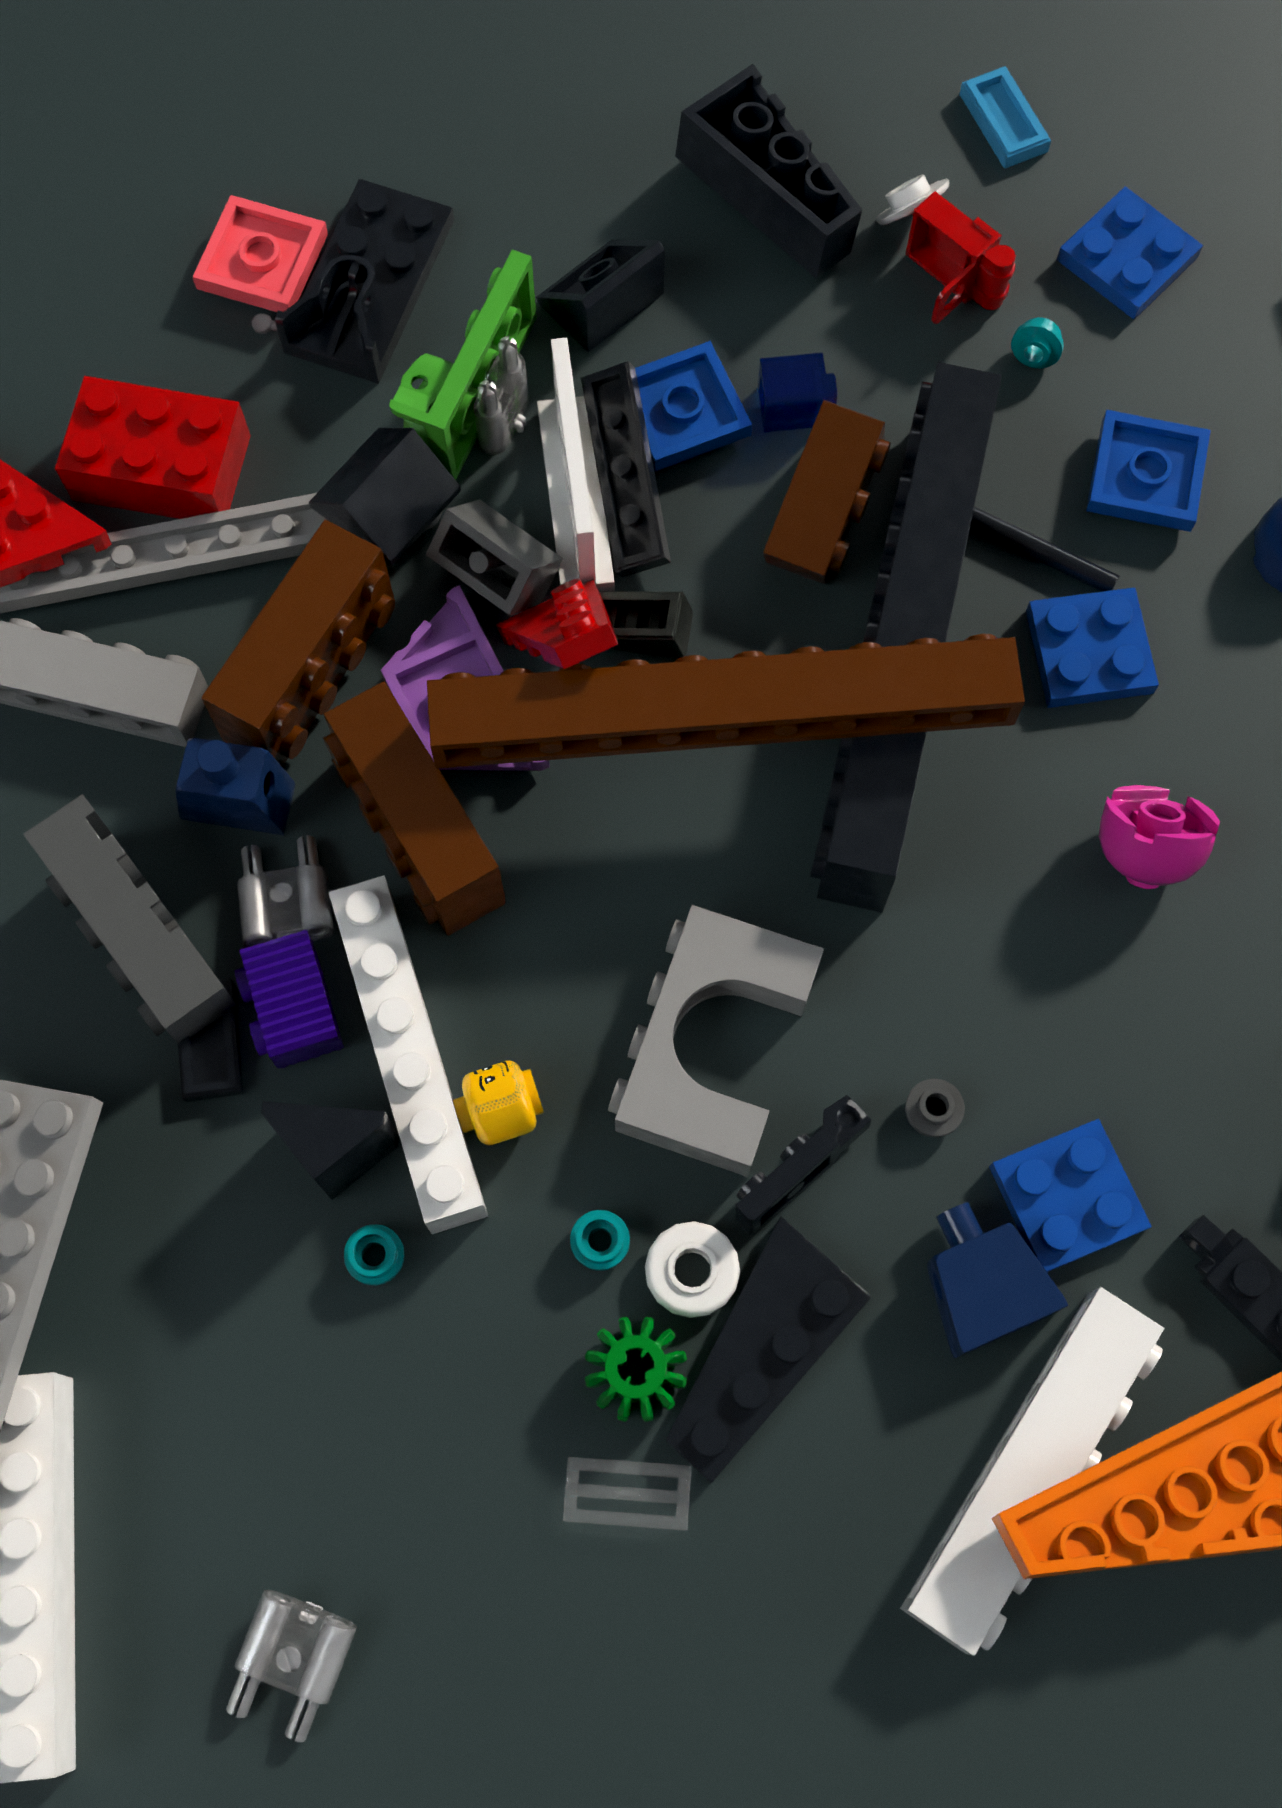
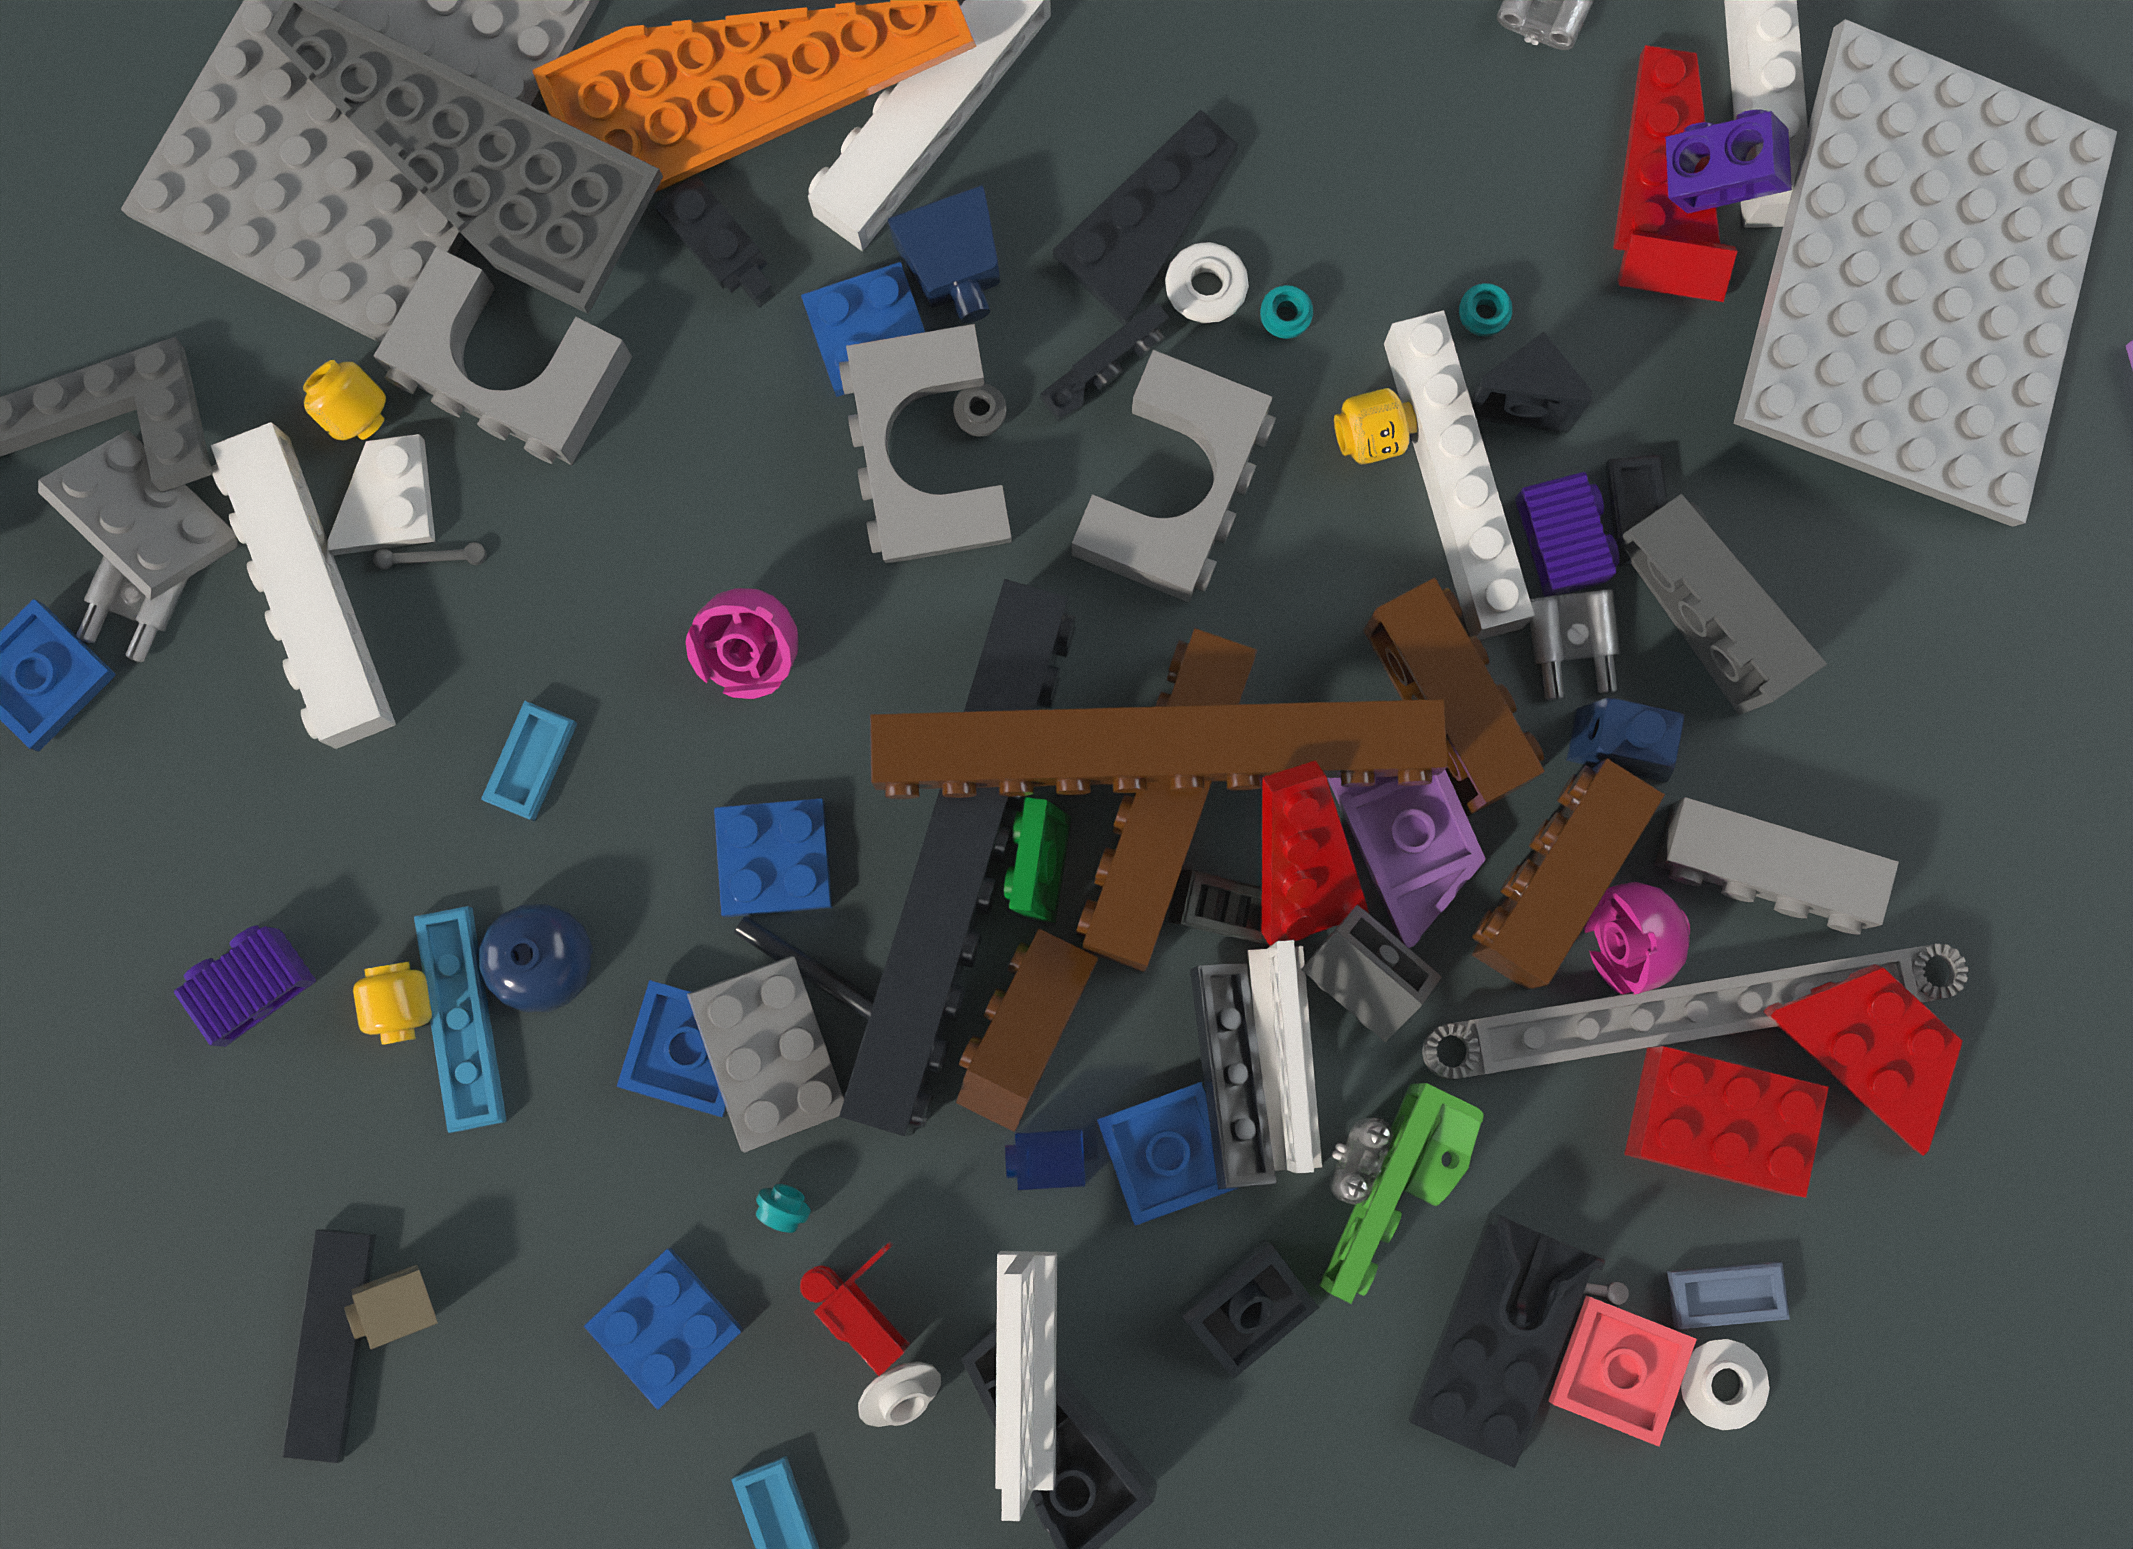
camera: 175 degrees left, 10 degrees up
(87, 1405) = (1728, 174): none -> dark purple brick
(153, 1314) = (1677, 265): none -> red tile
(157, 1438) = (1664, 105): none -> red wing
(160, 323) = (1728, 1295): none -> sand blue tile
(171, 271) = (1697, 1382): none -> white piece
(222, 597) = (1639, 937): none -> dark pink cylinder
(388, 491) = (1485, 1048): black slope -> none
(575, 1490) = (1268, 127): clear tile -> none
(617, 1360) = (1265, 180): green gear -> none
(728, 615) = (1159, 822): none -> reddish brown brick
(807, 173) = (1025, 1377): none -> white fence
(834, 608) = (1038, 872): none -> green plate
(1000, 976) = (885, 380): none -> light grey arch
(1073, 463) = (767, 1053): none -> light grey plate

